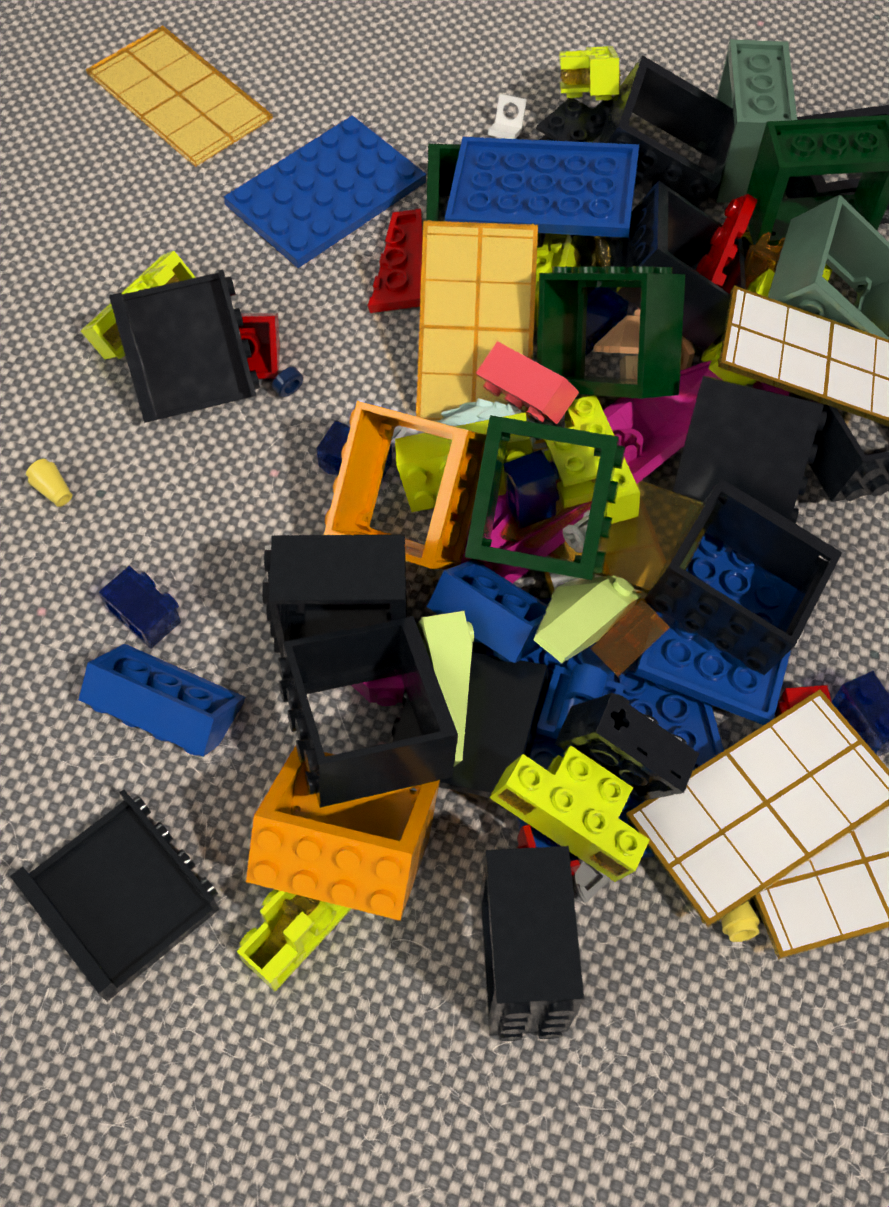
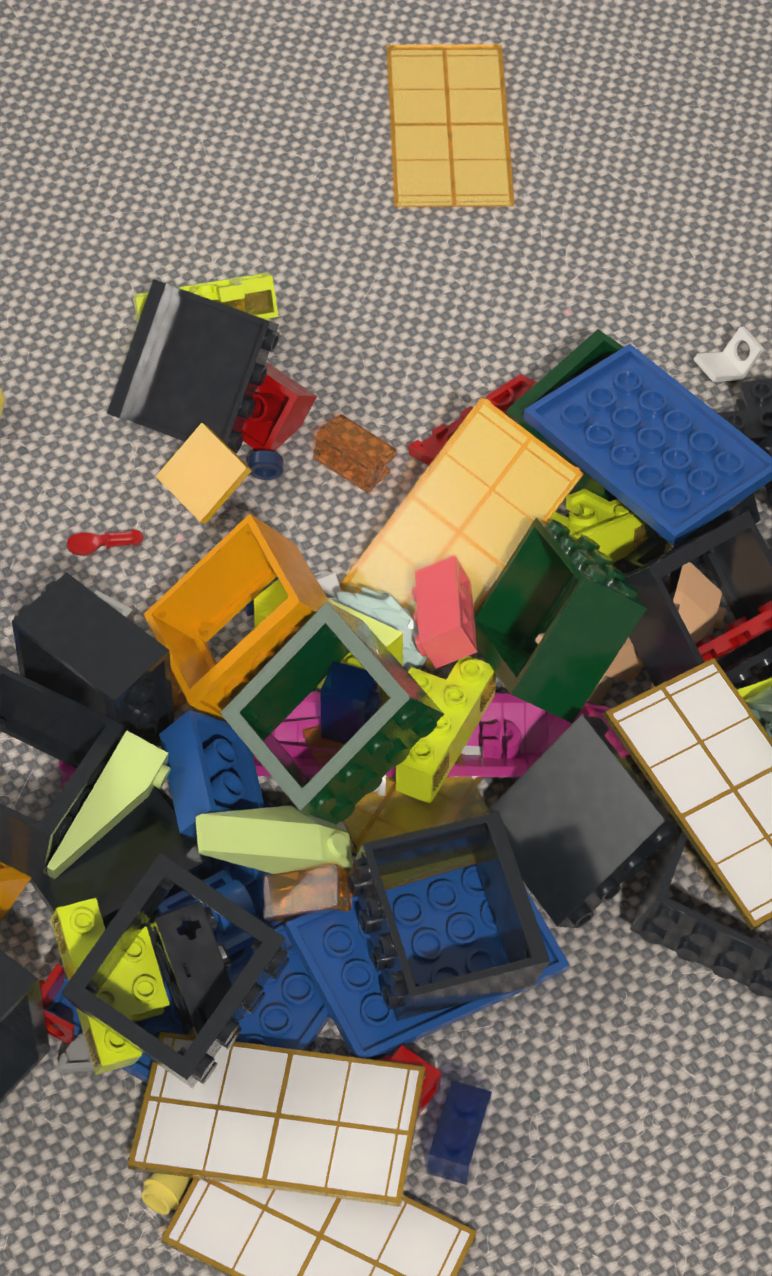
camera: 40 degrees right, 5 degrees down
(216, 521) = (87, 543): none -> red piece
(254, 415) = (203, 473): none -> yellow tile
(324, 190) = (485, 309): blue plate -> none
(338, 334) = (353, 453): none -> clear orange hinge
(710, 748) = (223, 1025): none -> black window

